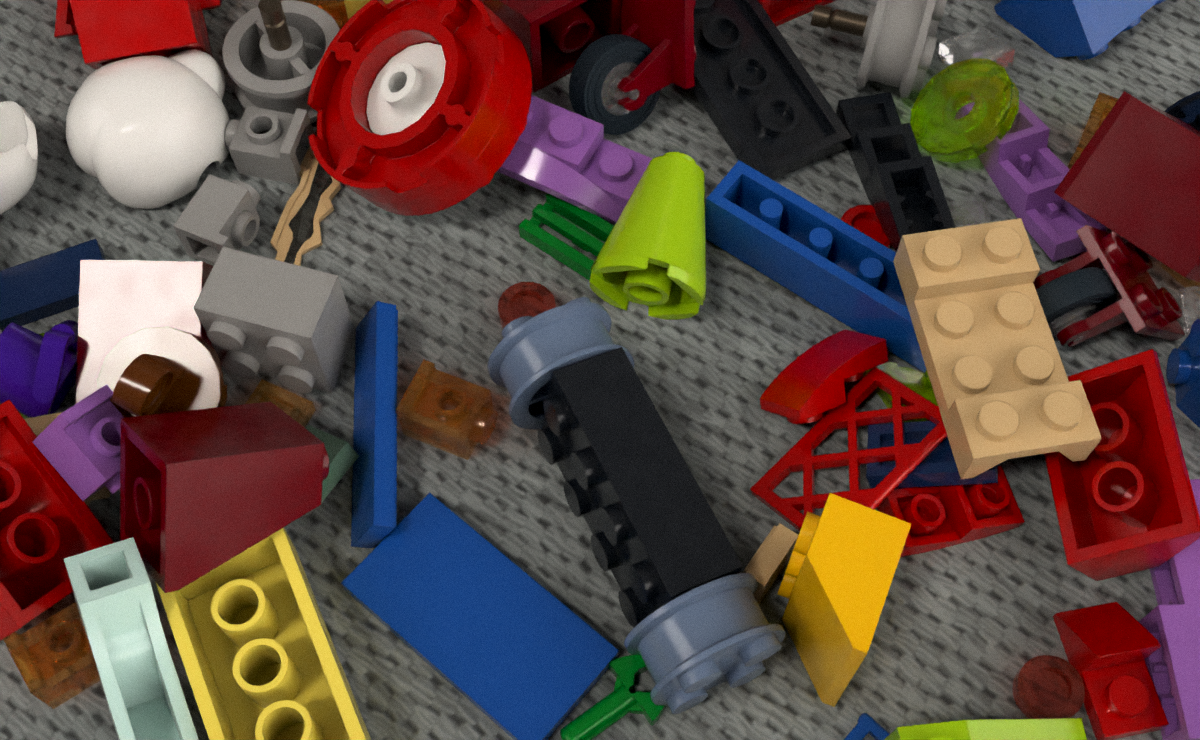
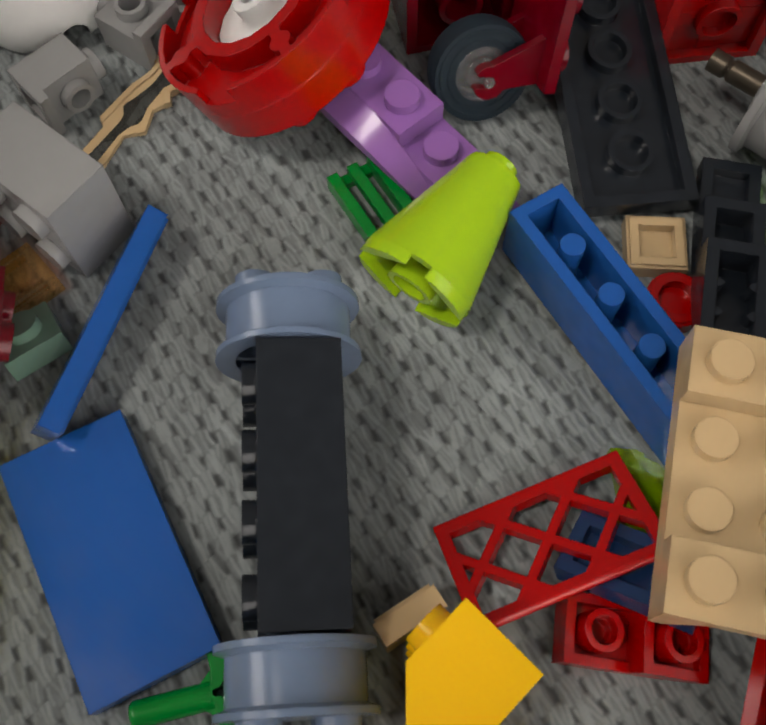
camera: 25 degrees right, 5 degrees up
(451, 430) = (151, 327): clear orange brick -> none
(524, 300) = (298, 254): clear red tile -> none
(818, 376) = (544, 441): red slope -> none
(830, 186) = (654, 245): none -> tan tile

